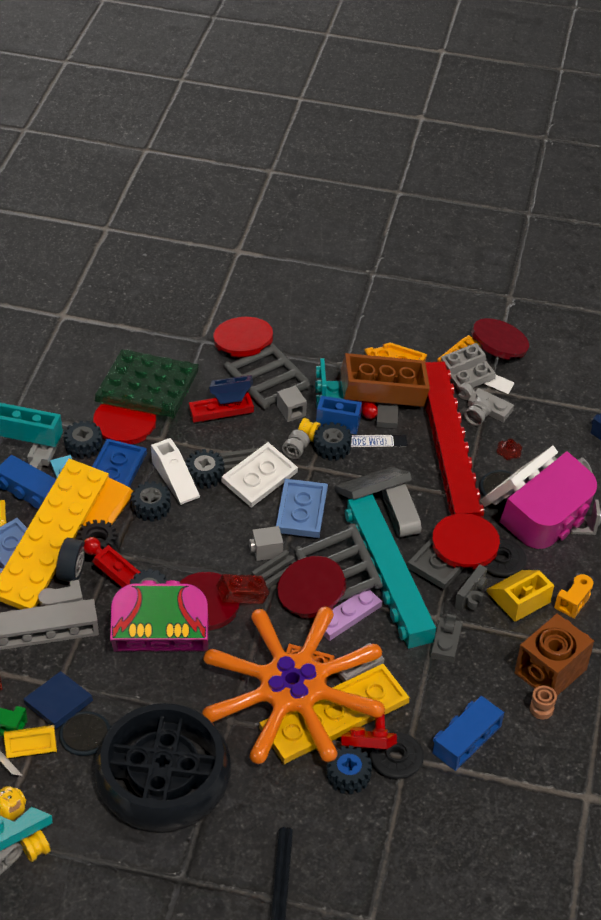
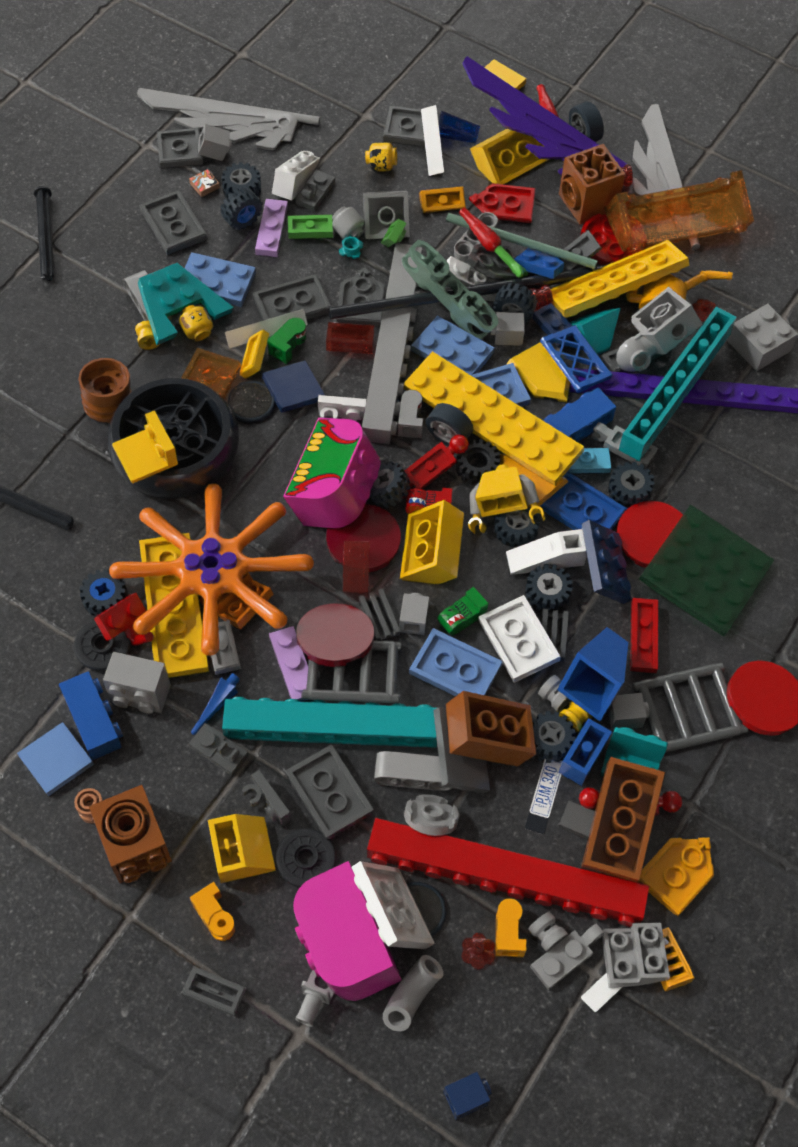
camera: 110 degrees right, 15 degrees up
(68, 773) = (212, 370): none -> clear orange plate
(76, 658) = (341, 407): none -> white plate
(127, 845) = (103, 387): none -> dark orange wheel
(133, 505) = (502, 493): none -> yellow torso
(152, 555) = (420, 498): none -> red leg
(170, 430) = (606, 562): none -> dark blue plate
(195, 549) = (432, 544): none -> yellow slope
(204, 752) = (146, 451): none -> yellow bracket
(231, 389) = (665, 647): dark blue slope -> none
(249, 513) = (463, 612): none -> green leg
(277, 409) = (597, 673): none -> blue slope
(353, 462) = (490, 729): none -> dark orange brick
(401, 651) = (224, 690): none -> blue piece
(428, 699) = (137, 683): none -> light grey brick
(432, 487) = (431, 815): none -> light grey tile
(465, 540) = (333, 815): red tile -> none
(488, 432) = (507, 922): none -> light orange leg
(500, 338) = (679, 1023): dark red tile -> none
(516, 748) = (55, 759): none -> medium blue tile

